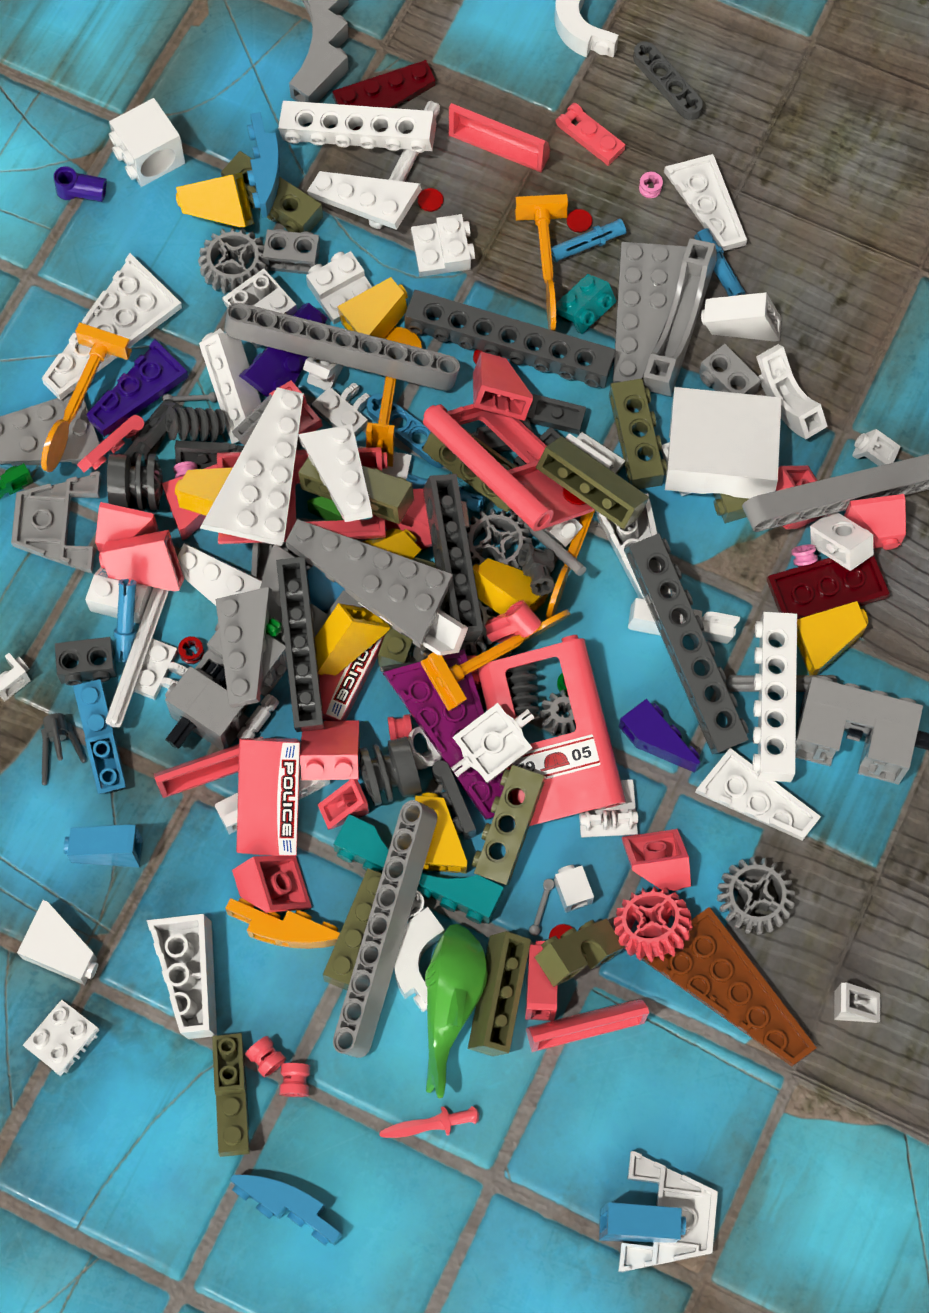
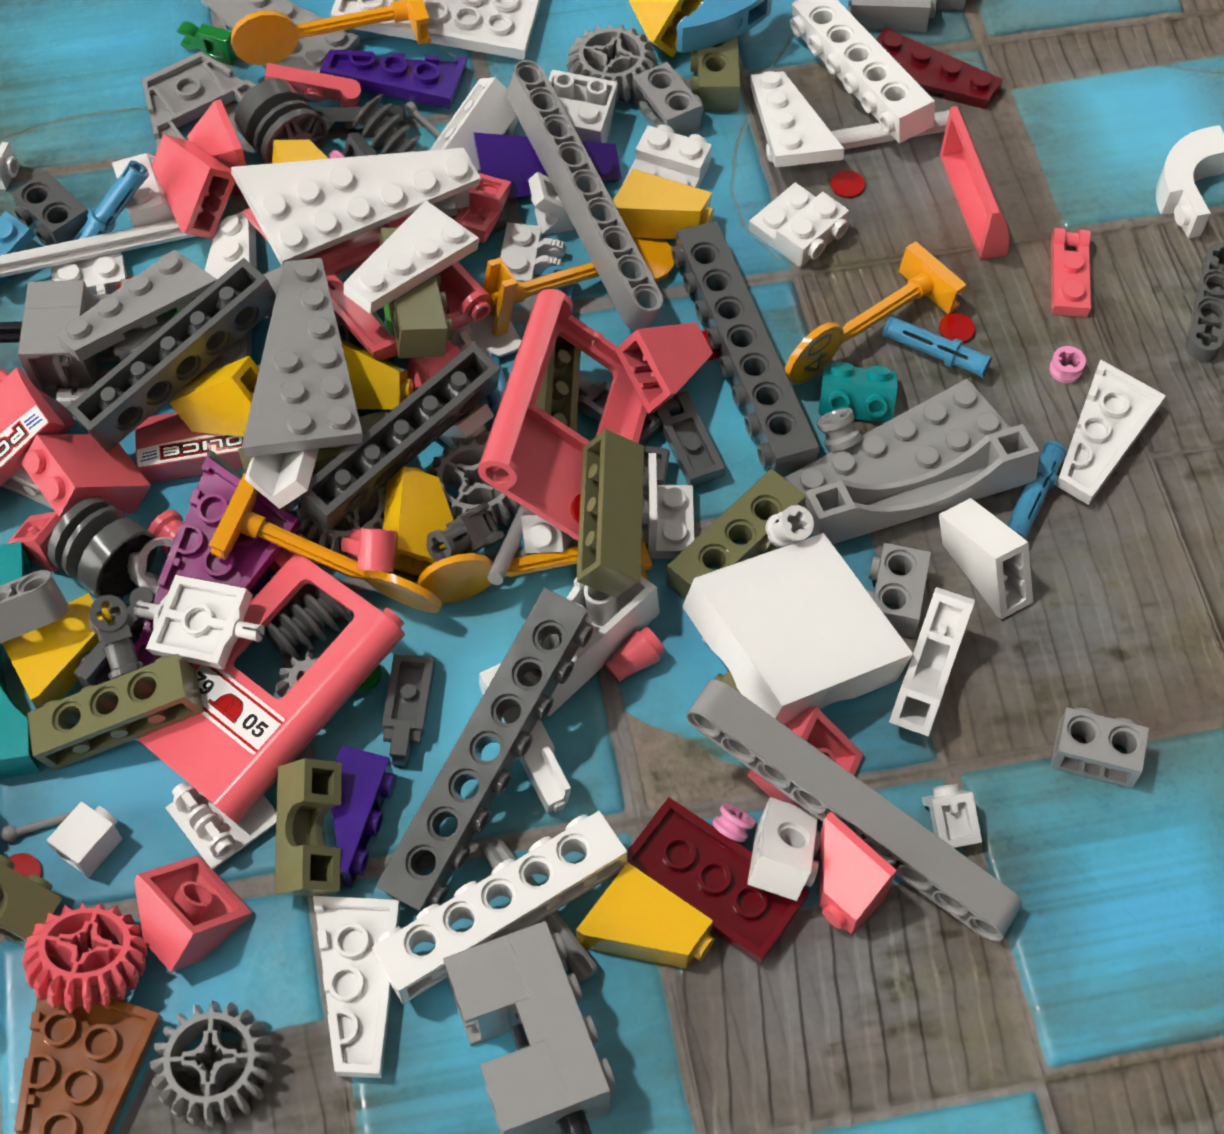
camera: 55 degrees right, 10 degrees down
(464, 794) = (115, 638): none -> dark grey connector
(607, 331) = (839, 429): none -> light grey wheel
(614, 672) = (407, 704): none -> dark grey hinge
(659, 395) = (789, 526): none -> white bush
(670, 529) = (637, 653): none -> coral cone
(675, 781) = (304, 797): none -> olive arch
(894, 355) = (1098, 756): none -> light grey brick

